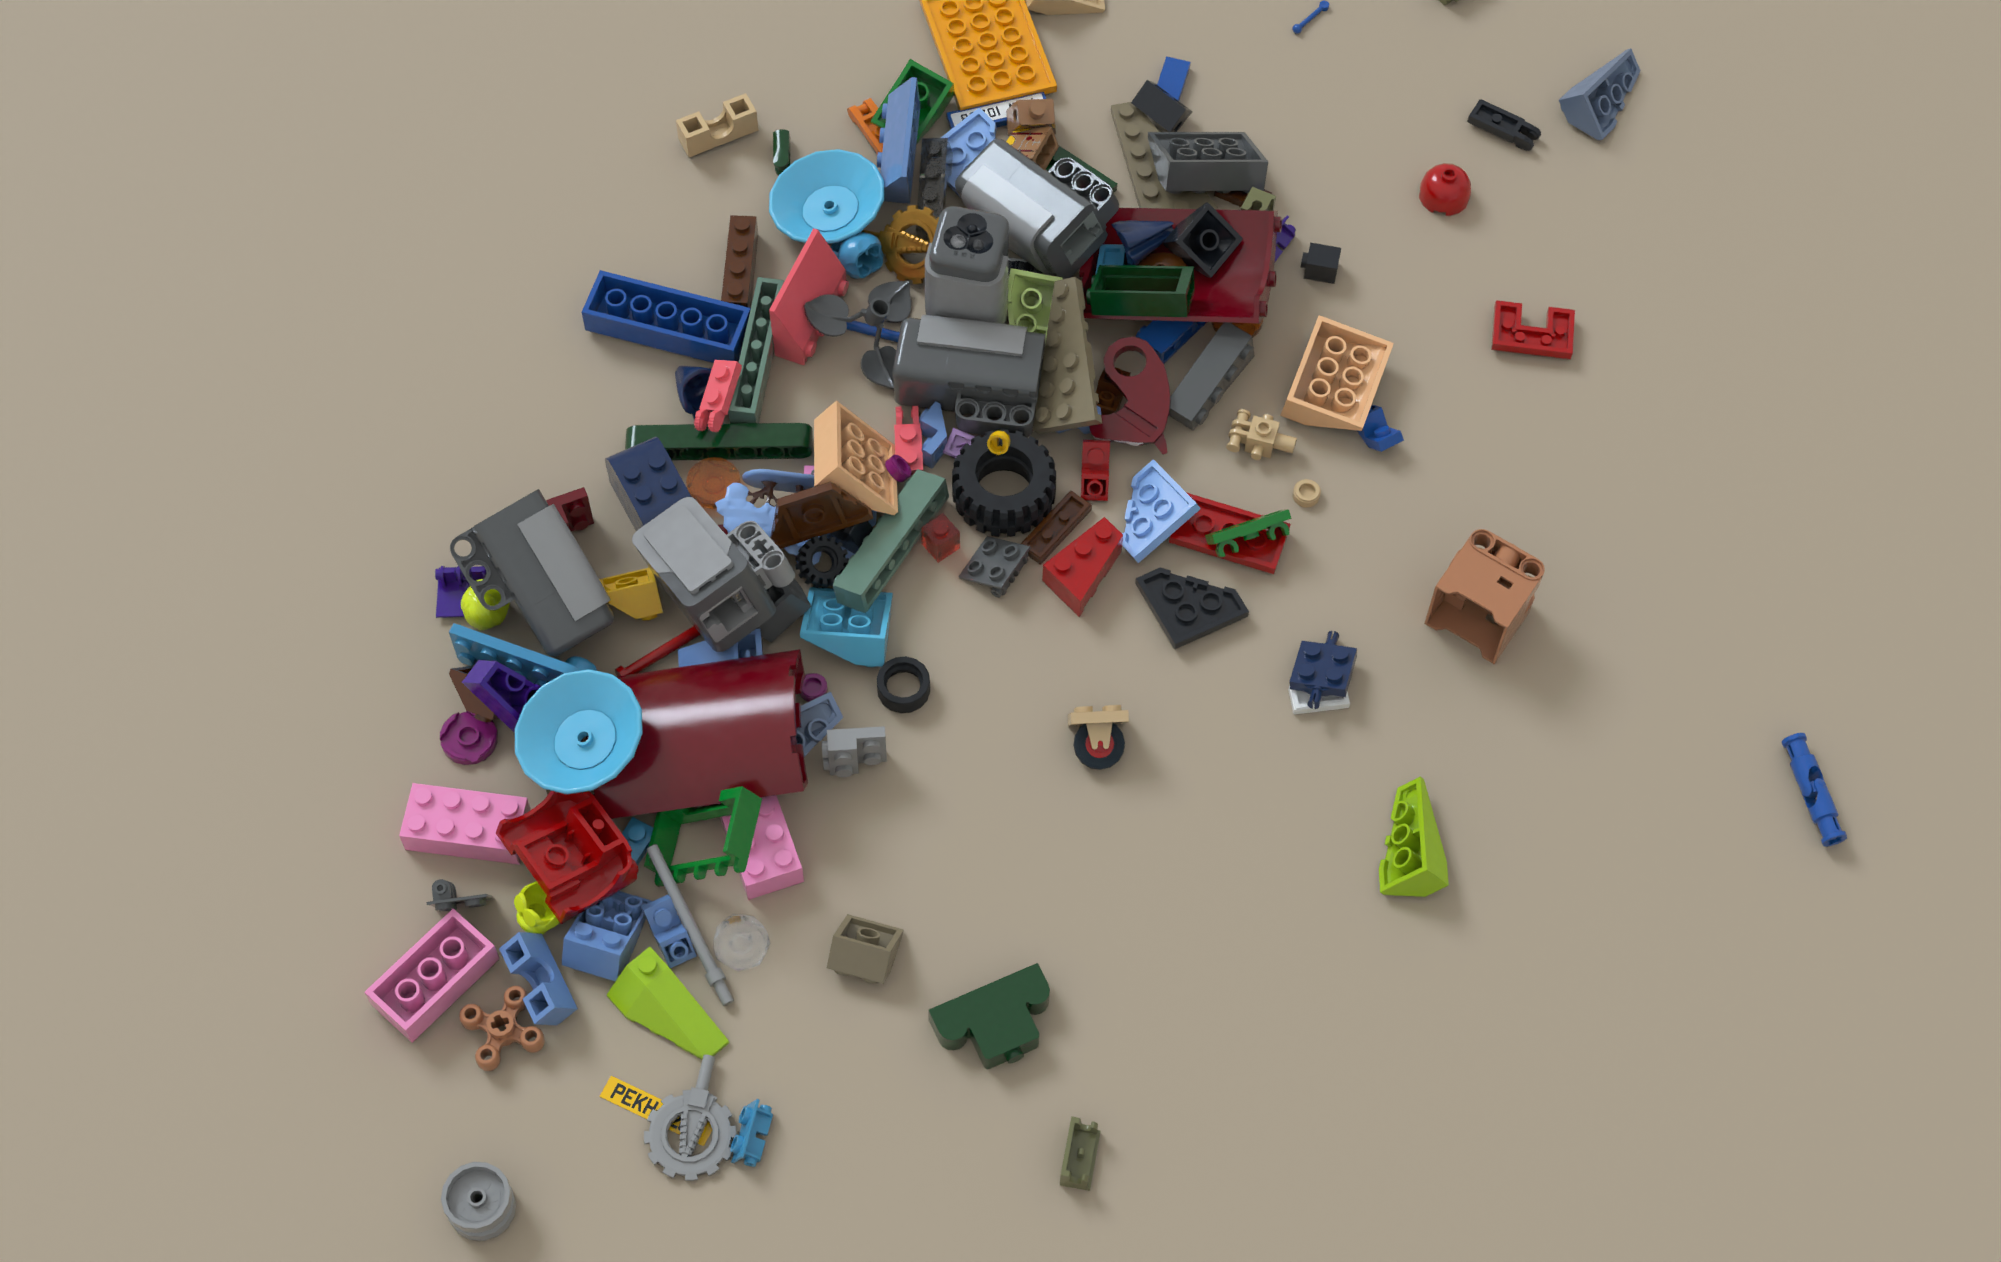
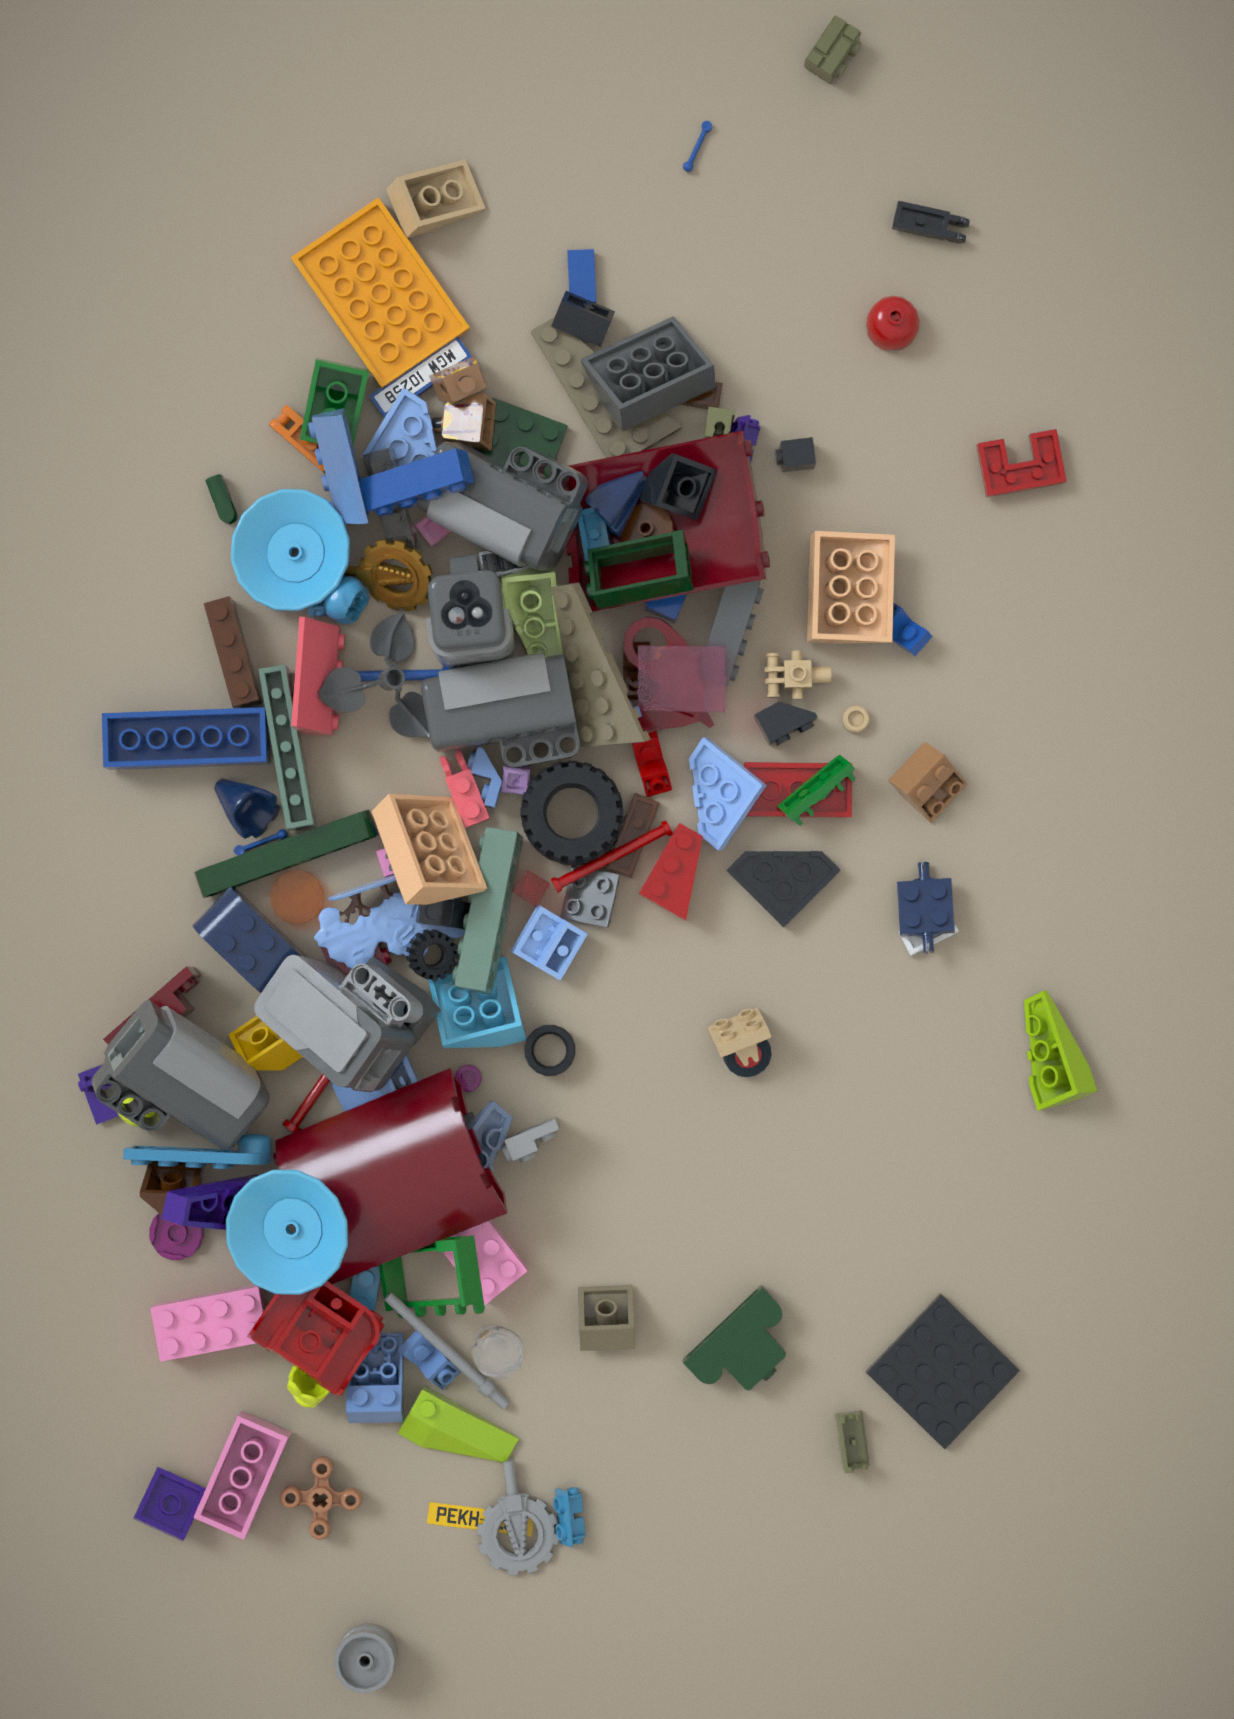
camera: 20 degrees left, 25 degrees up
(343, 980) = (169, 1504): none -> dark purple hinge
(446, 898) = (230, 1403): dark grey hinge -> none
(531, 958) = (326, 1430): medium blue arch -> none
(717, 395) = (271, 817): coral hinge -> none
(734, 122) = (160, 483): tan arch -> none
(815, 514) = (414, 923): reddish brown wing -> none
(898, 468) = (467, 831): magenta tile -> none
(938, 586) = (549, 942): none -> light blue brick
(963, 156) = (417, 481): none -> blue brick
(993, 442) = (558, 787): yellow hinge -> none
(1026, 532) = (611, 856): none -> red bar
(1150, 395) = (681, 678): none -> clear pink piece
(1200, 1118) = (942, 1371): none -> black plate
(1235, 470) = (783, 719): none -> black slope
(1361, 562) = (928, 781): none -> medium nougat slope
(1485, 584) = (1044, 786): nougat piece -> none
(1600, 96) = (1014, 159): sand blue wedge -> none

